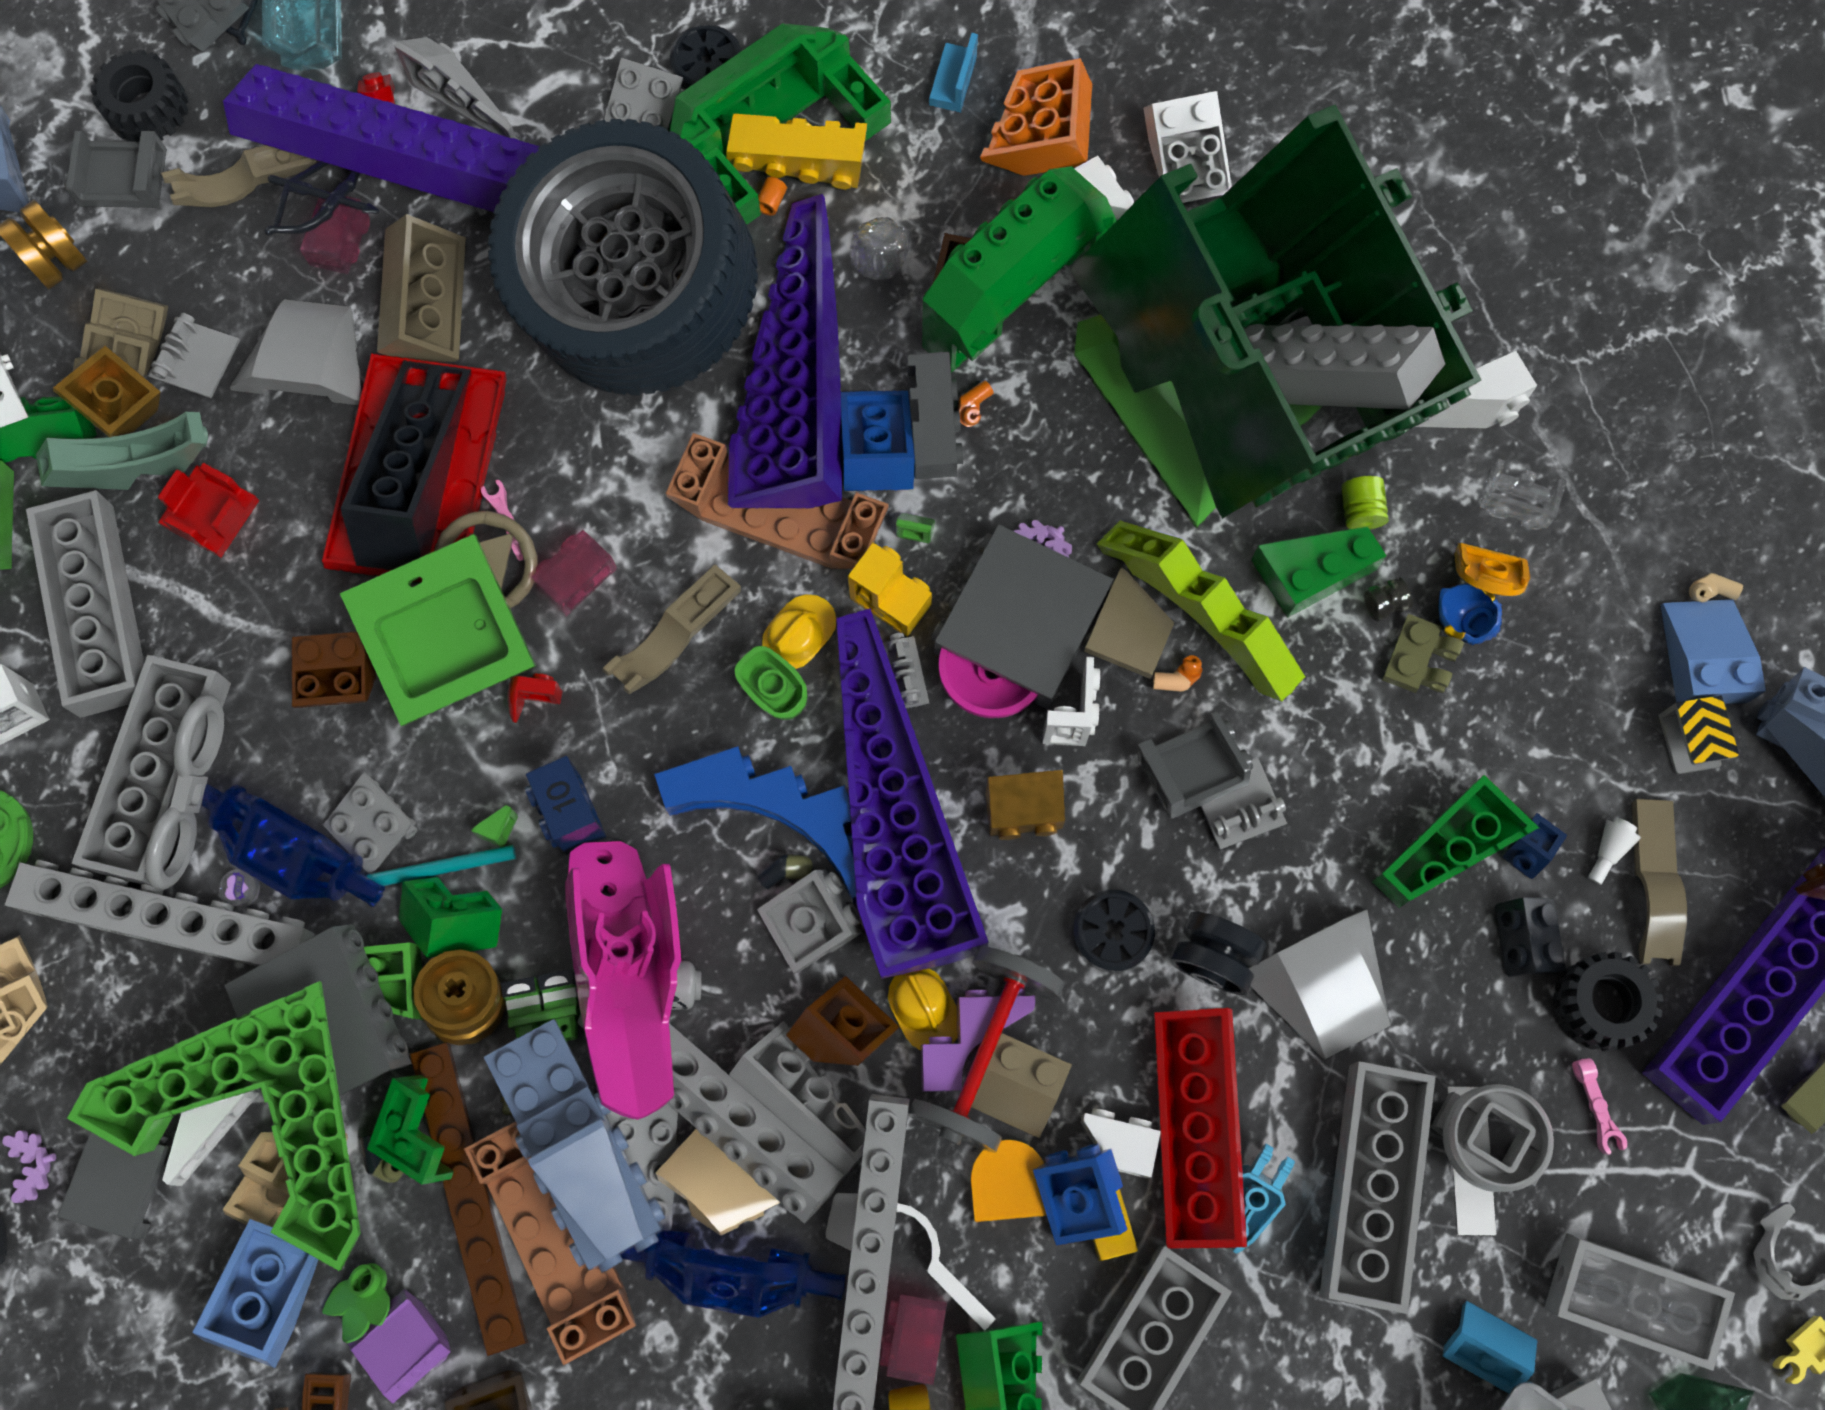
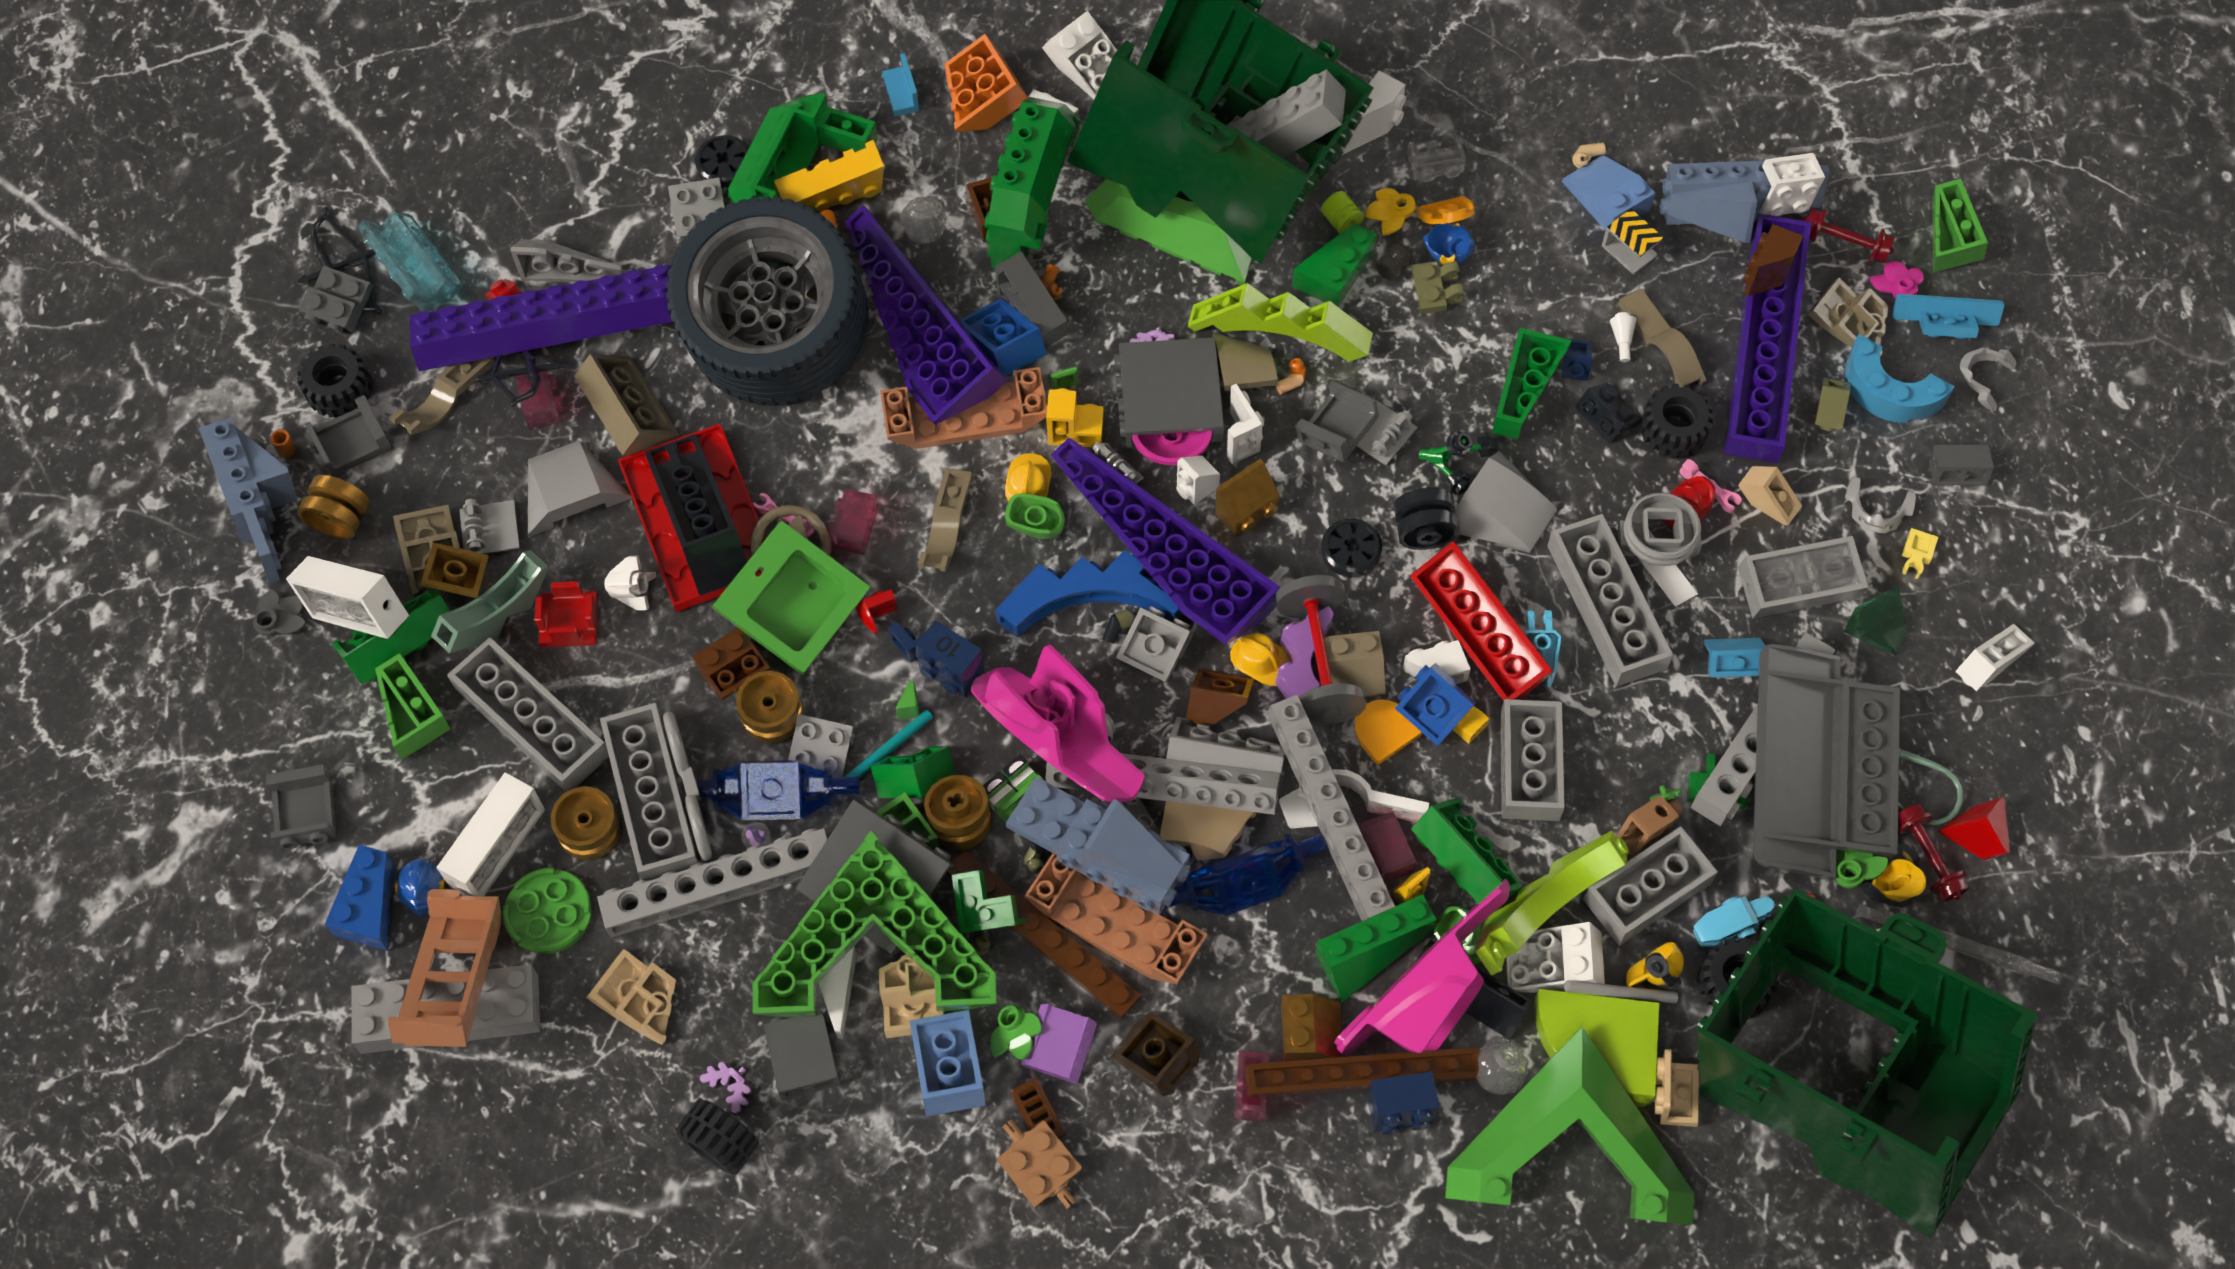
camera: 30 degrees left, 10 degrees down
(47, 140) = (283, 443): none -> orange hinge
(62, 765) = (586, 823): none -> pearl gold wheel
(290, 509) = (628, 583): none -> white brick
(340, 743) = (769, 706): none -> pearl gold wheel
(538, 747) = (904, 640): none -> dark blue bracket
(984, 742) = (1196, 478): none -> white slope
(1313, 888) = (1458, 444): none -> black plant
(1422, 529) = (1388, 210): none -> yellow plate
(1569, 1107) = (1698, 493): none -> red piece
(1667, 1163) = (1770, 493): none -> tan slope

